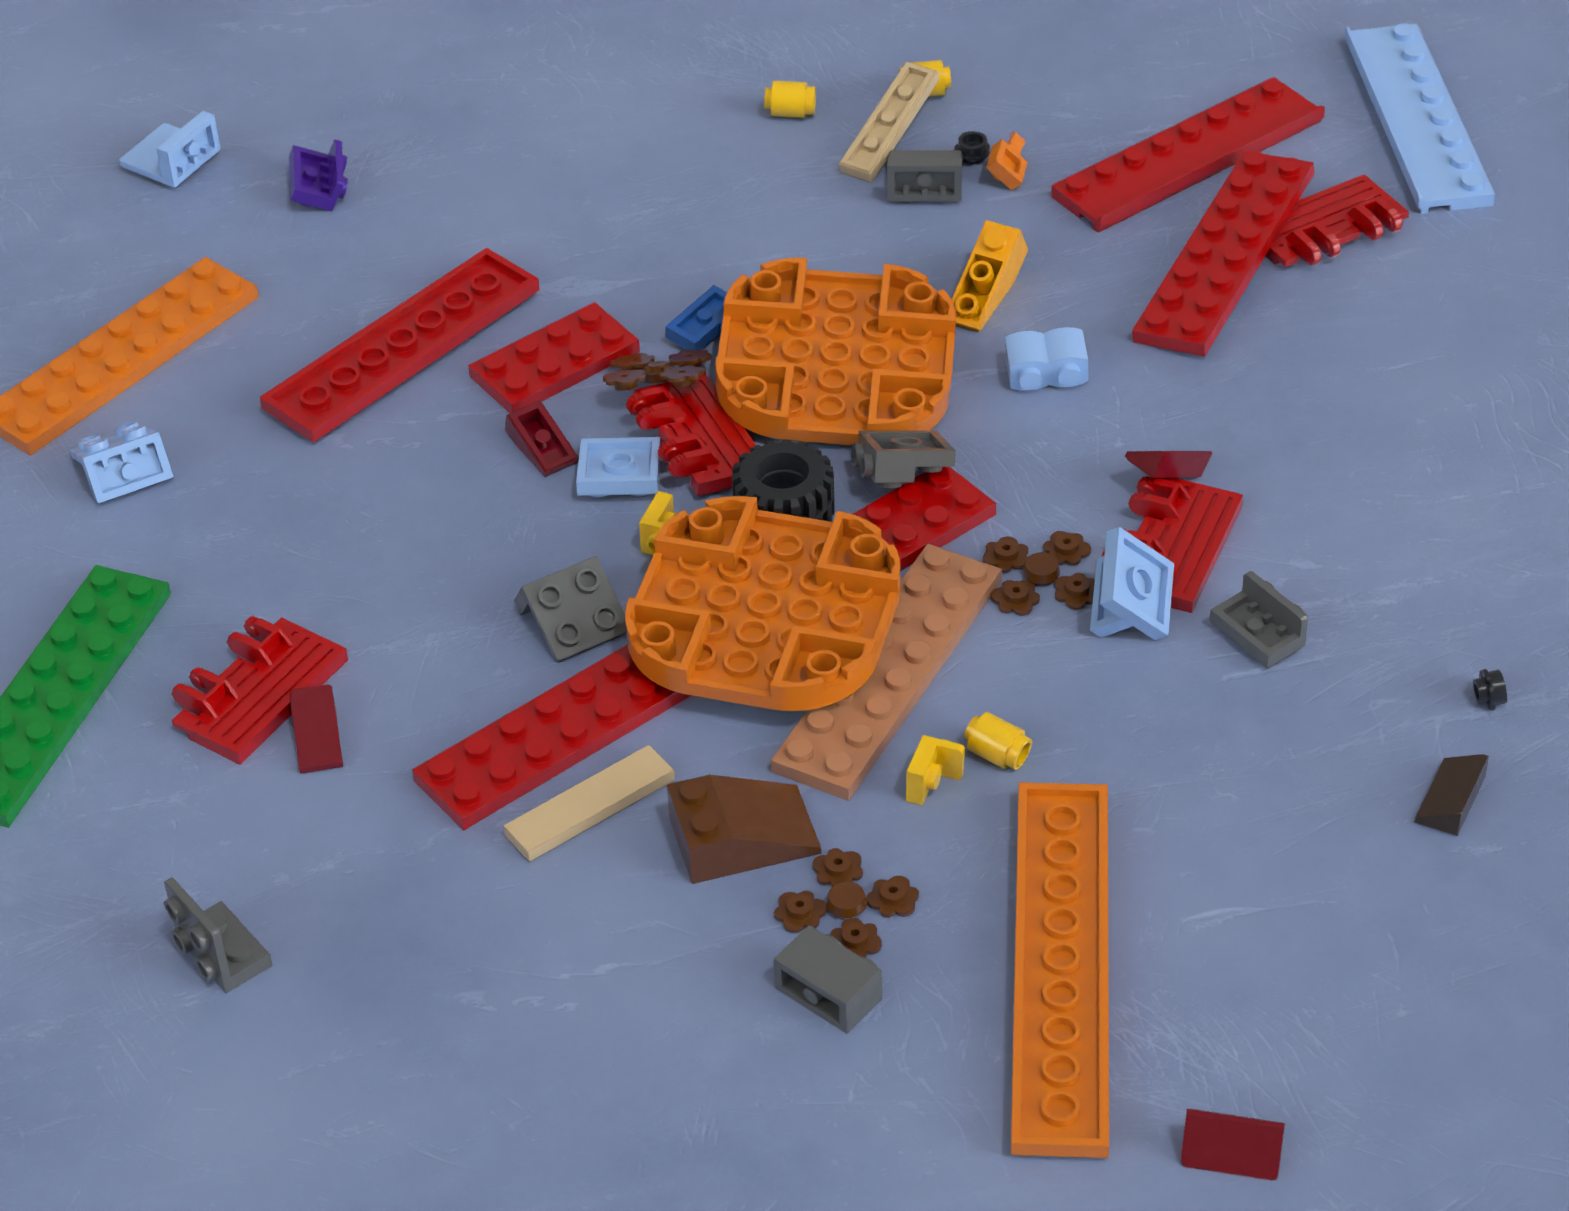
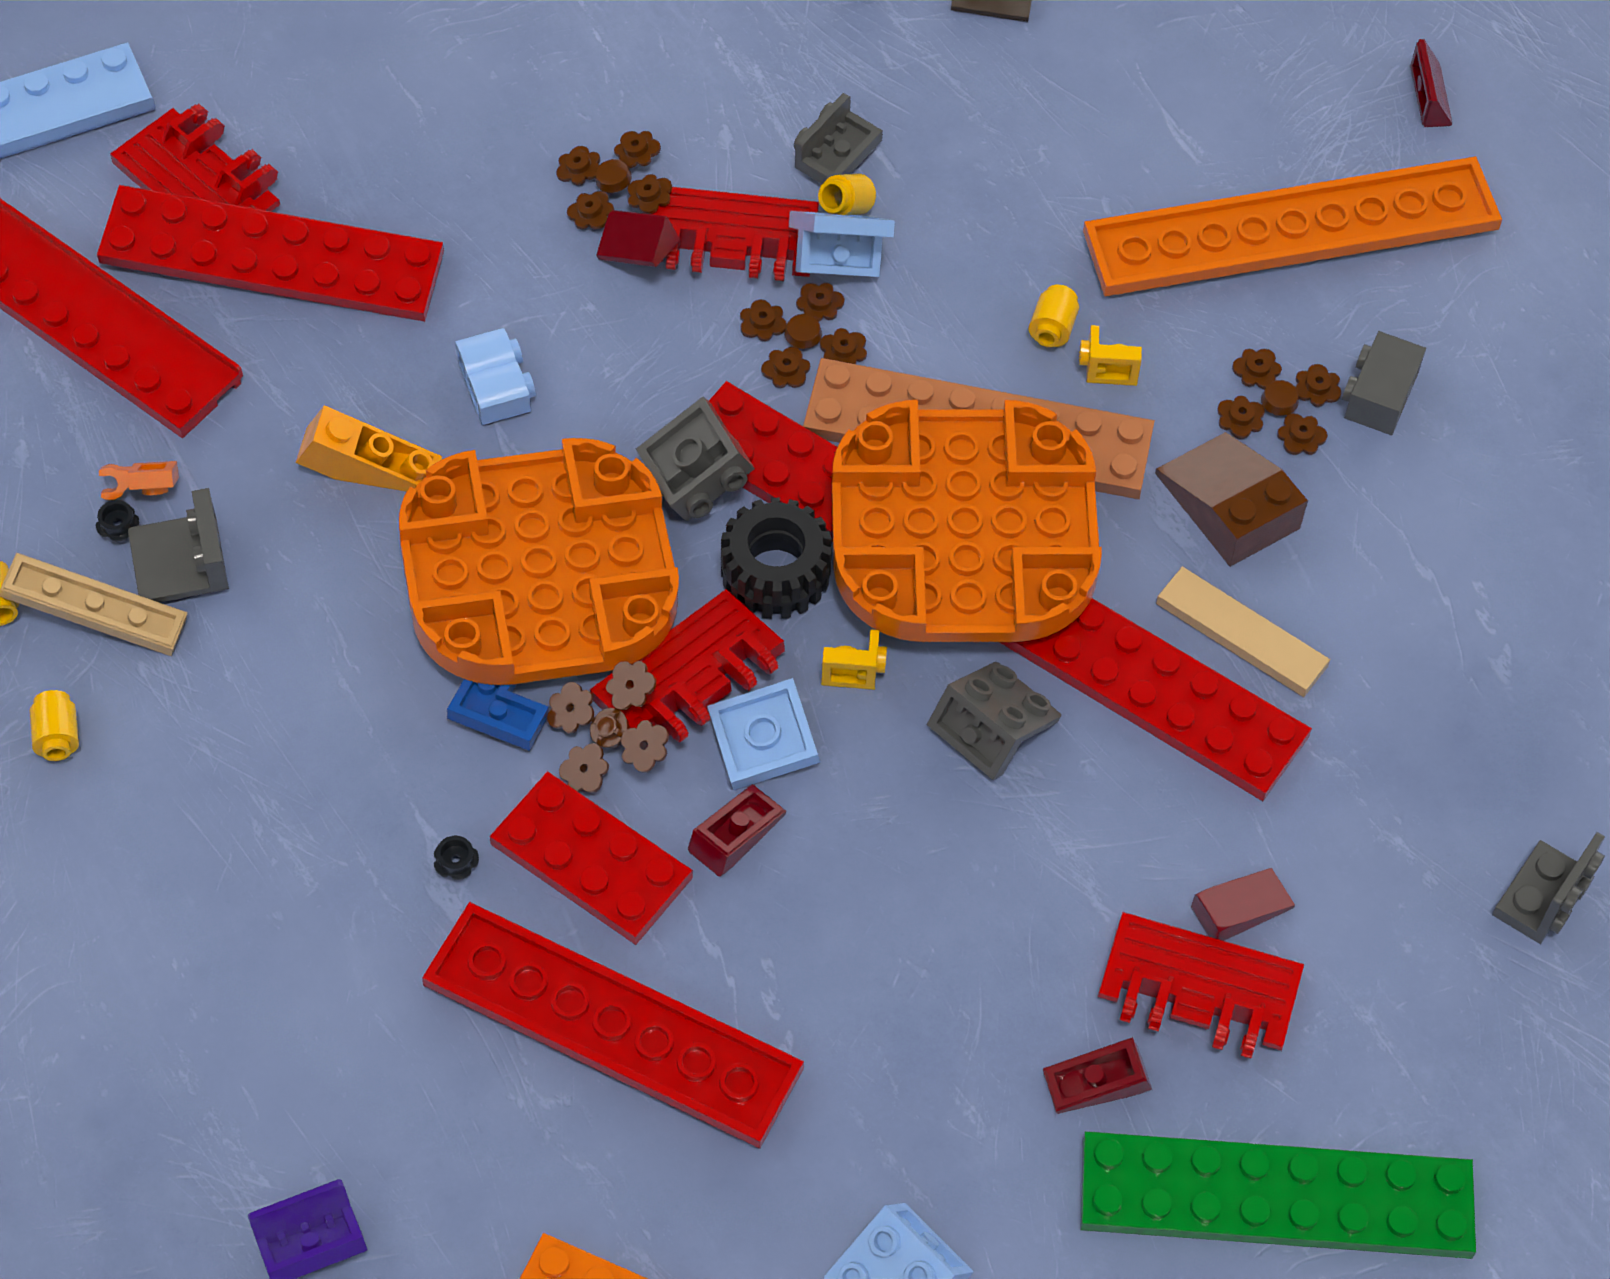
camera: 110 degrees left, 15 degrees up
(211, 610) = (1098, 1077): none -> dark red slope
(585, 283) = (452, 847): none -> black plate
(1187, 611) = (847, 194): none -> yellow brick
(1260, 466) = (613, 177): none -> reddish brown plant

